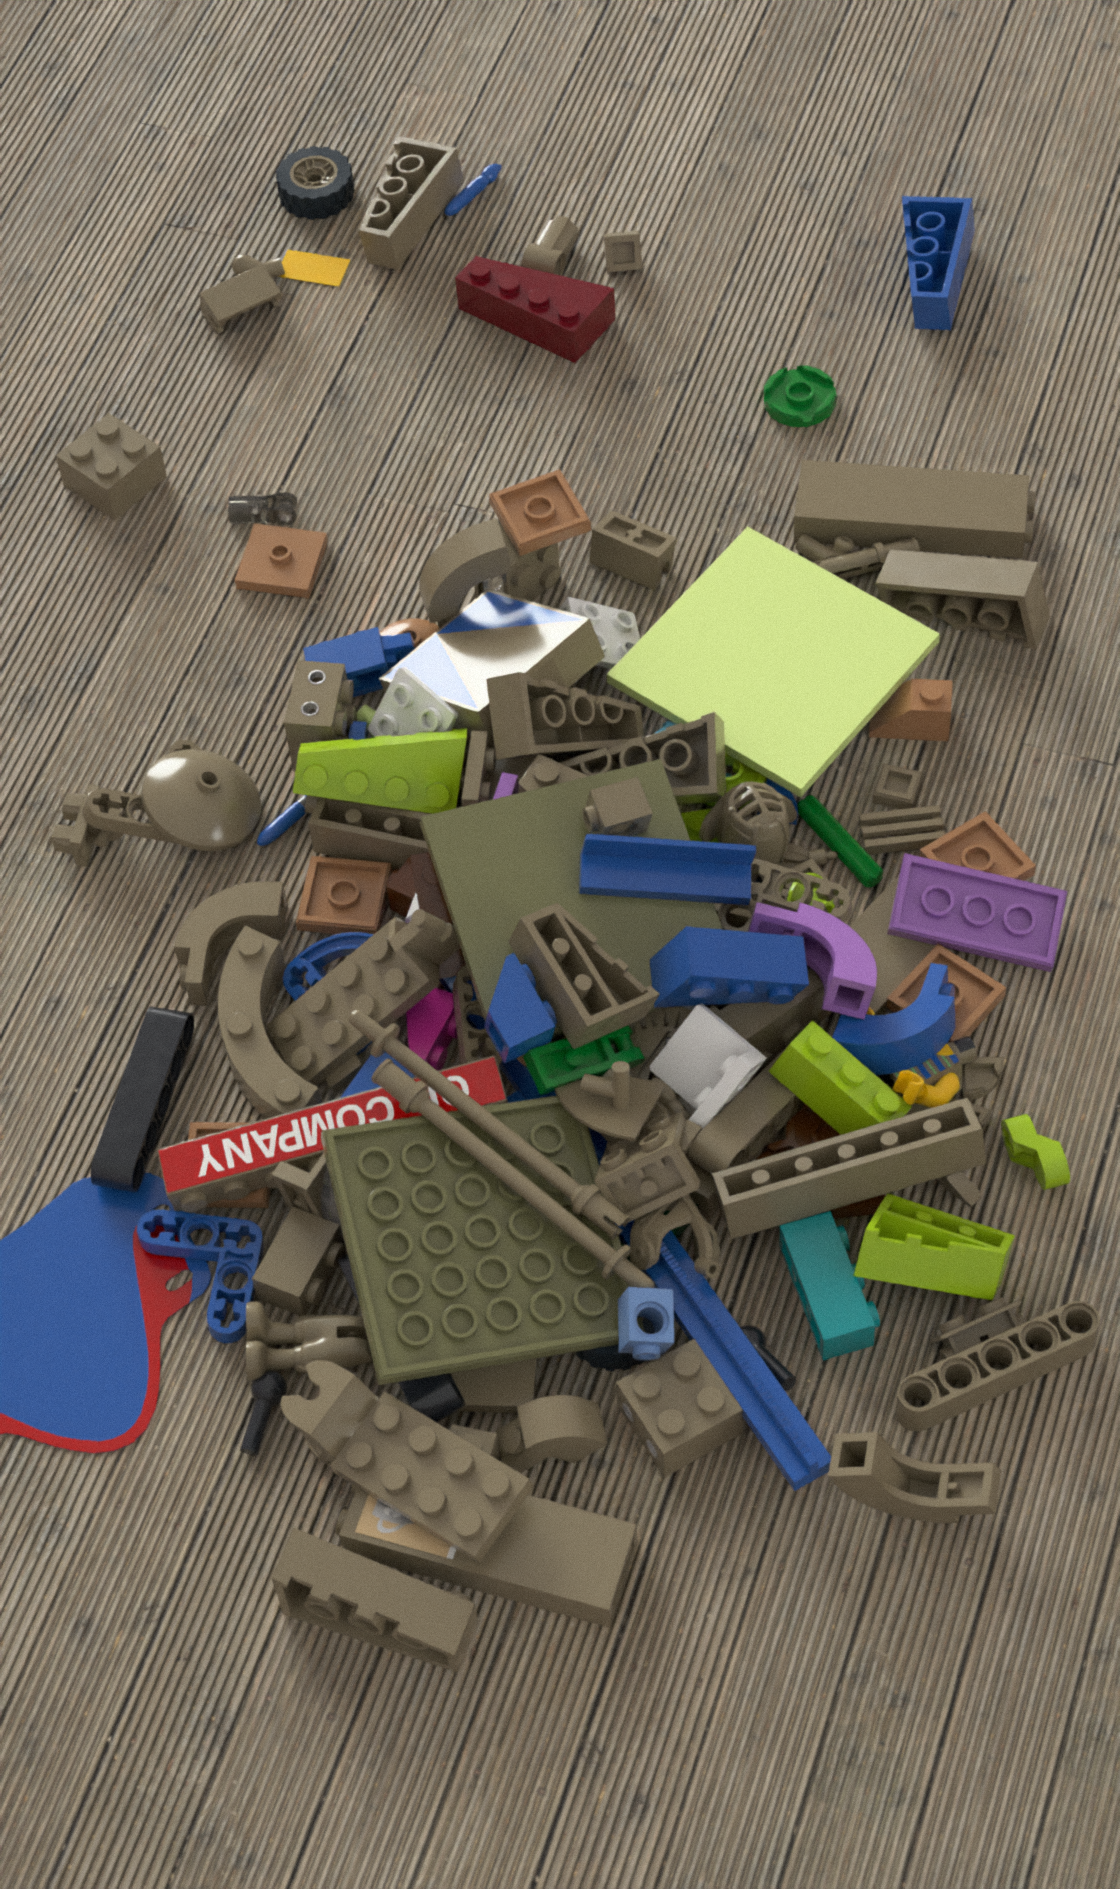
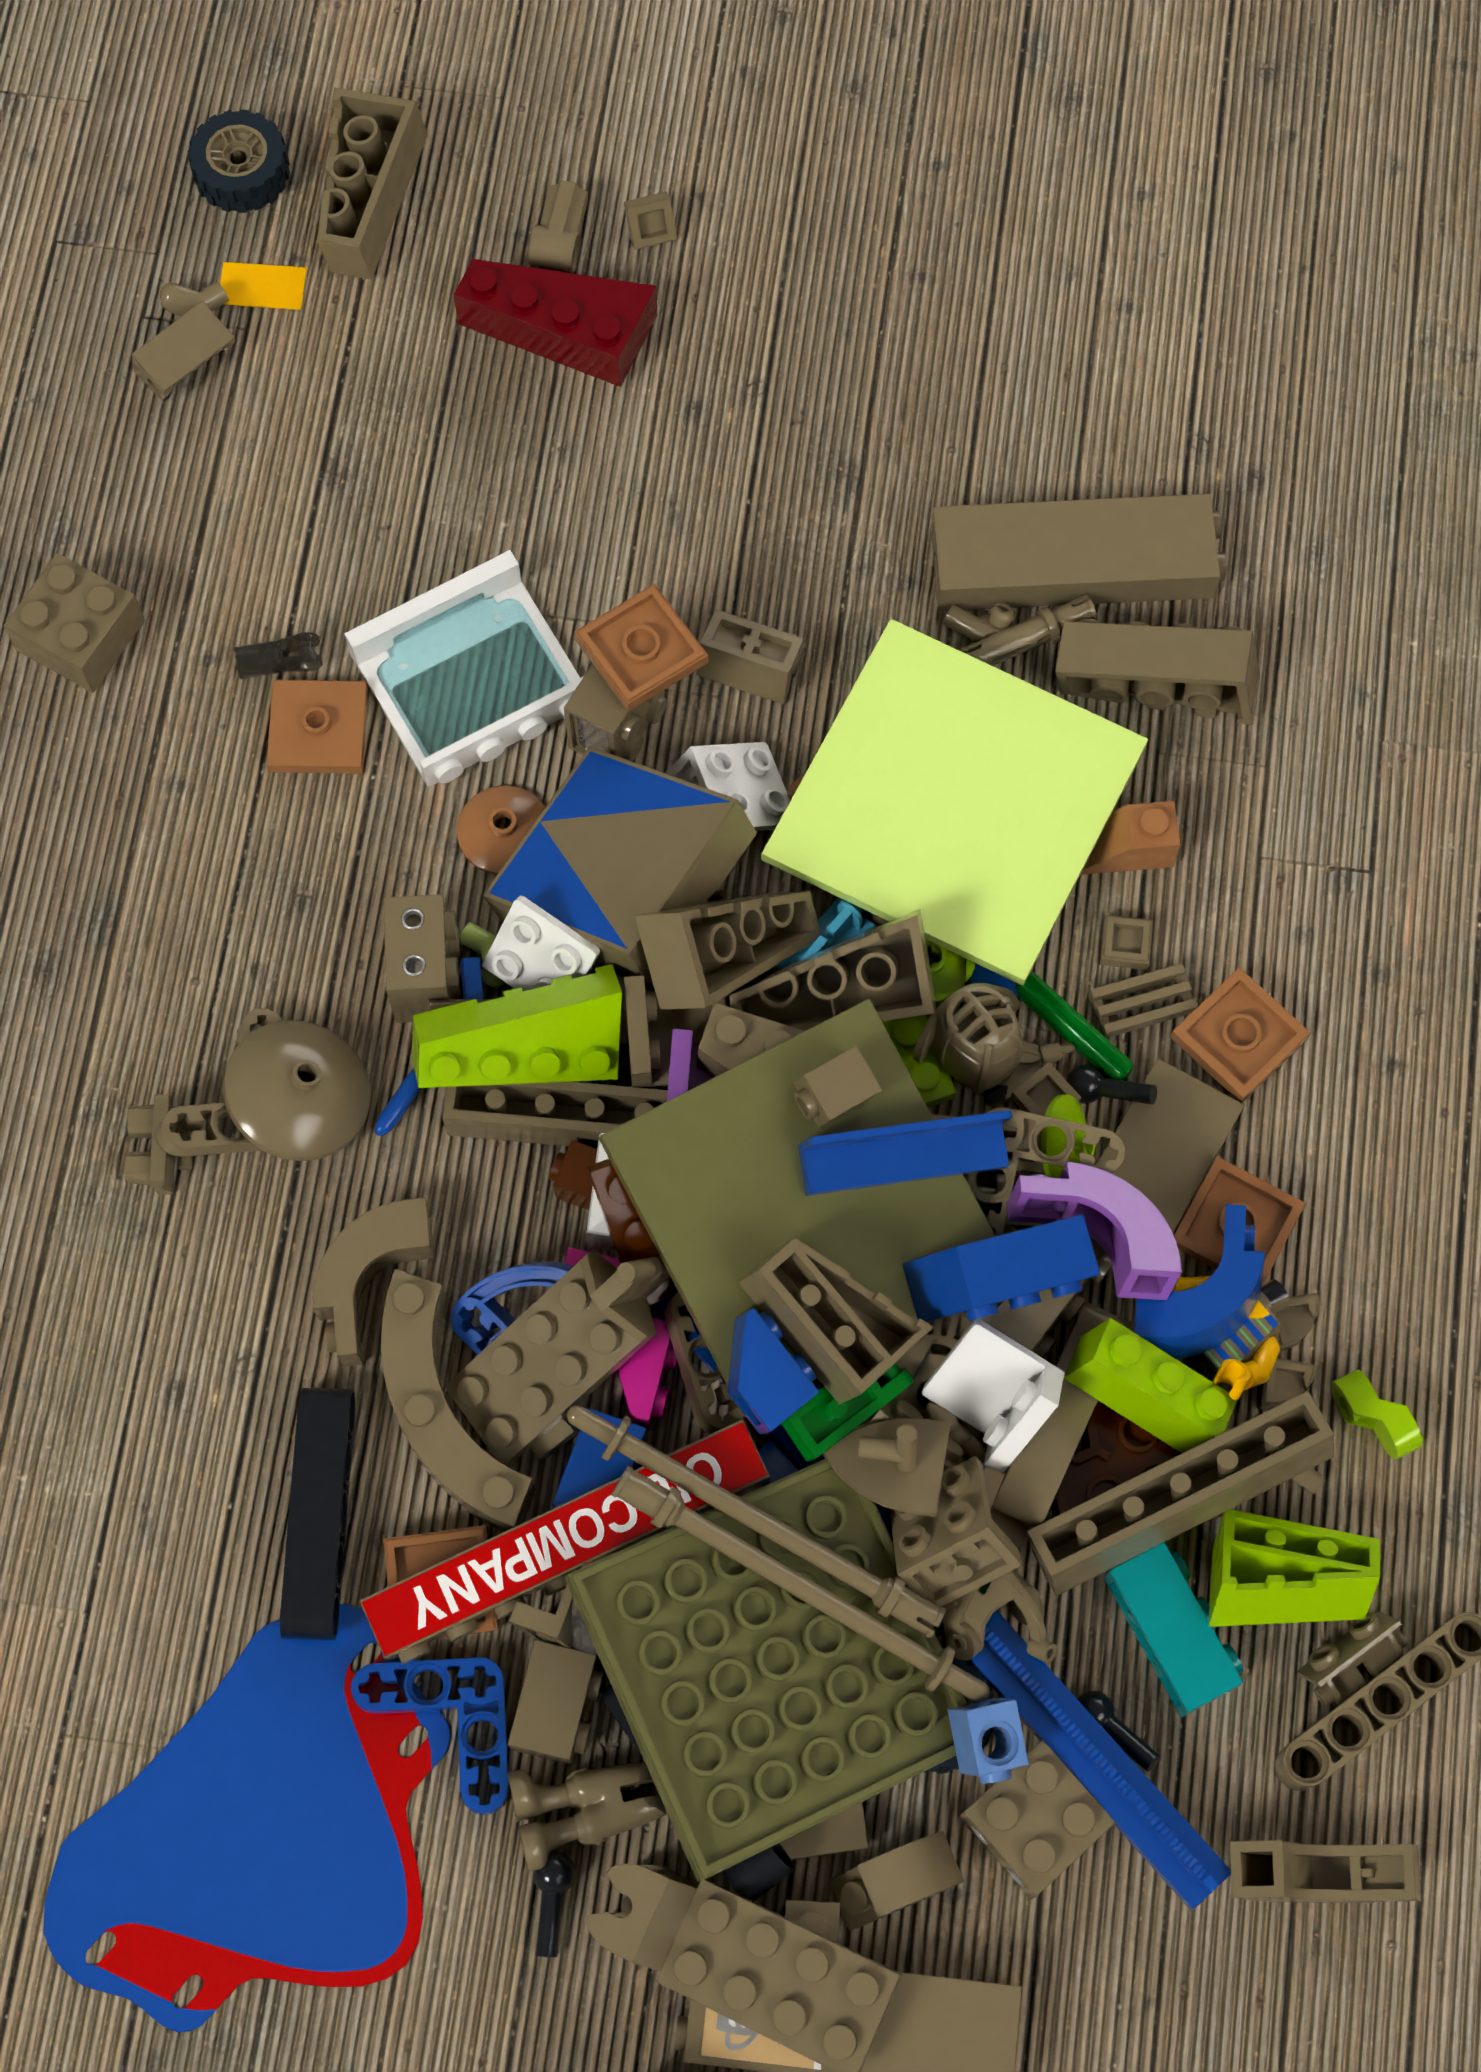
camera: 15 degrees left, 15 degrees up
(343, 896) = (499, 1195): medium nougat plate -> none
(365, 656) = (450, 863): blue hinge -> none
(393, 524) = (465, 669): none -> panel
(460, 565) = (559, 737): dark tan arch -> none
(487, 176) = (444, 140): blue piece -> none
(799, 396) = (906, 402): green tile -> none
(861, 885) = (1092, 1085): none -> black bar
(938, 250) = (1036, 175): blue wedge -> none
(977, 912) = (1255, 1108): medium lavender tile -> none

